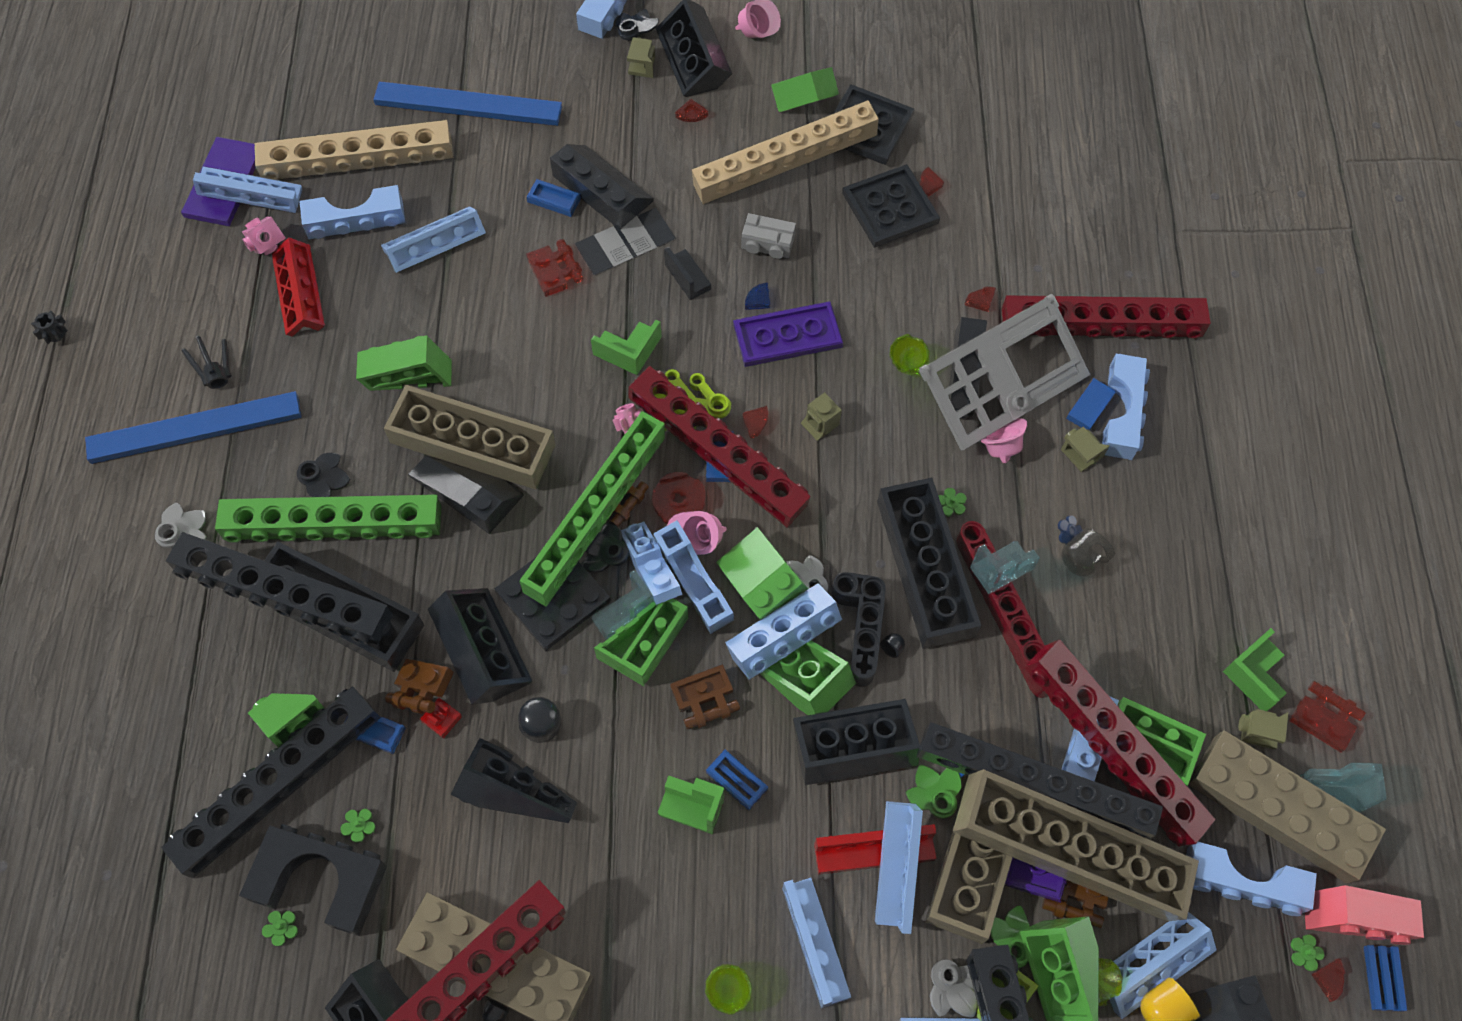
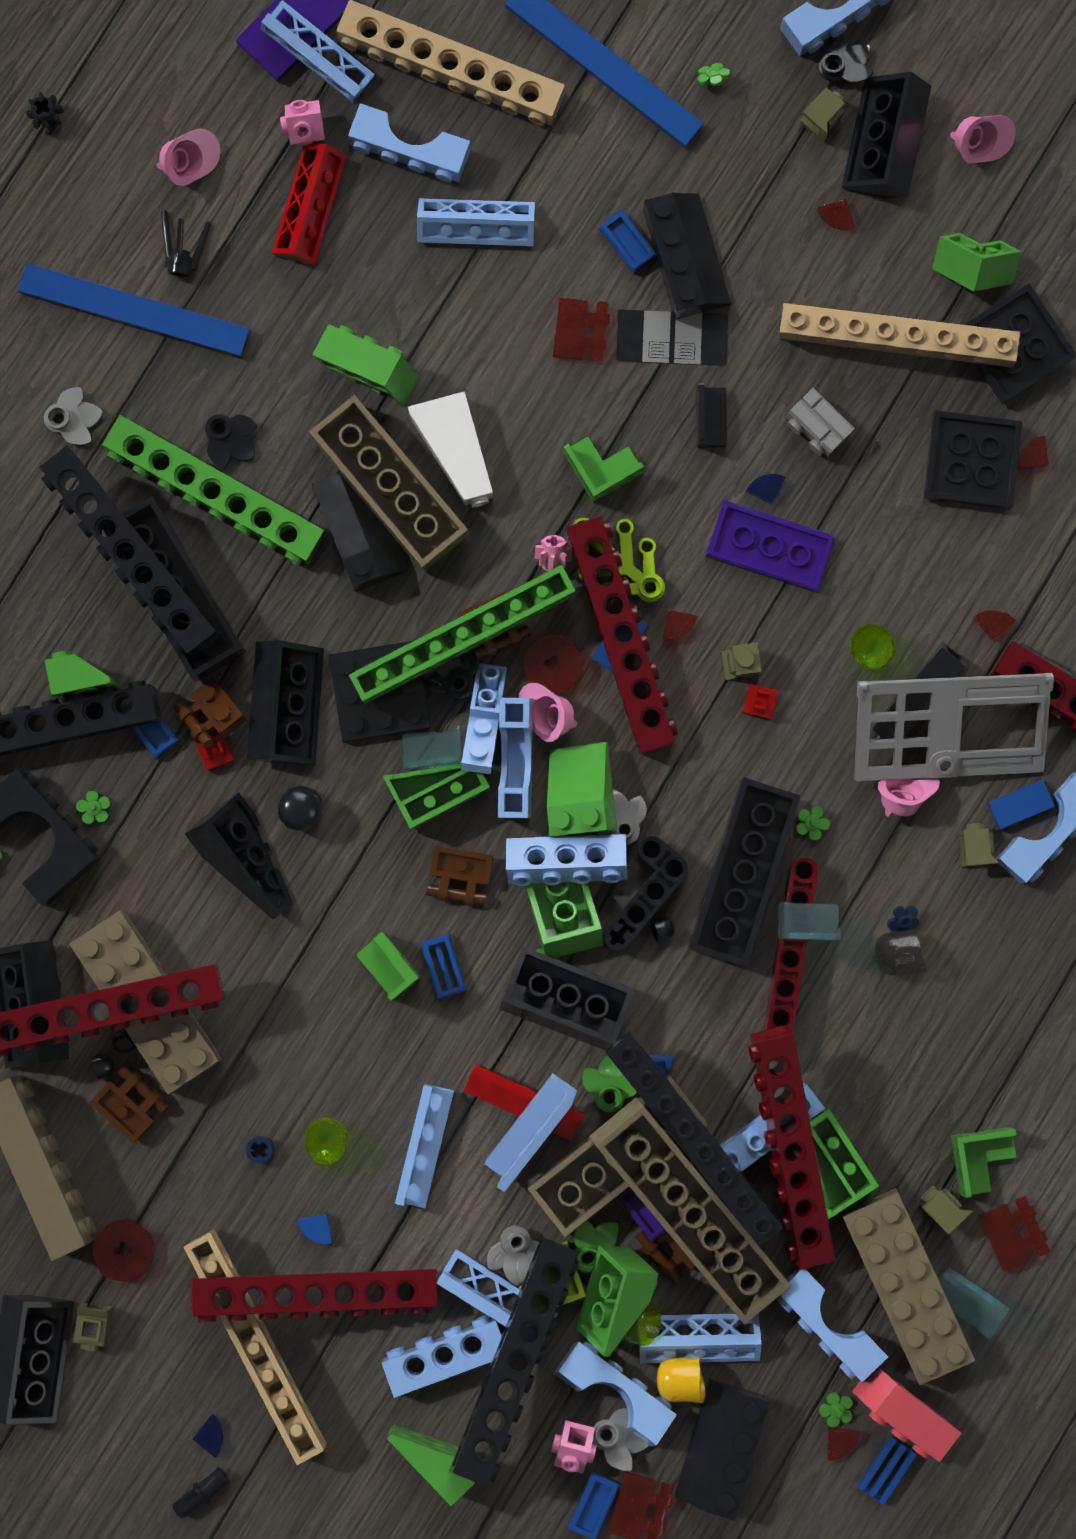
camera: 30 degrees right, 20 degrees up
(183, 299) = (189, 156): none -> bright pink piece
(506, 386) = (452, 439): none -> white slope
(550, 72) = (713, 75): none -> bright green plant
(853, 439) = (760, 701): none -> red tile

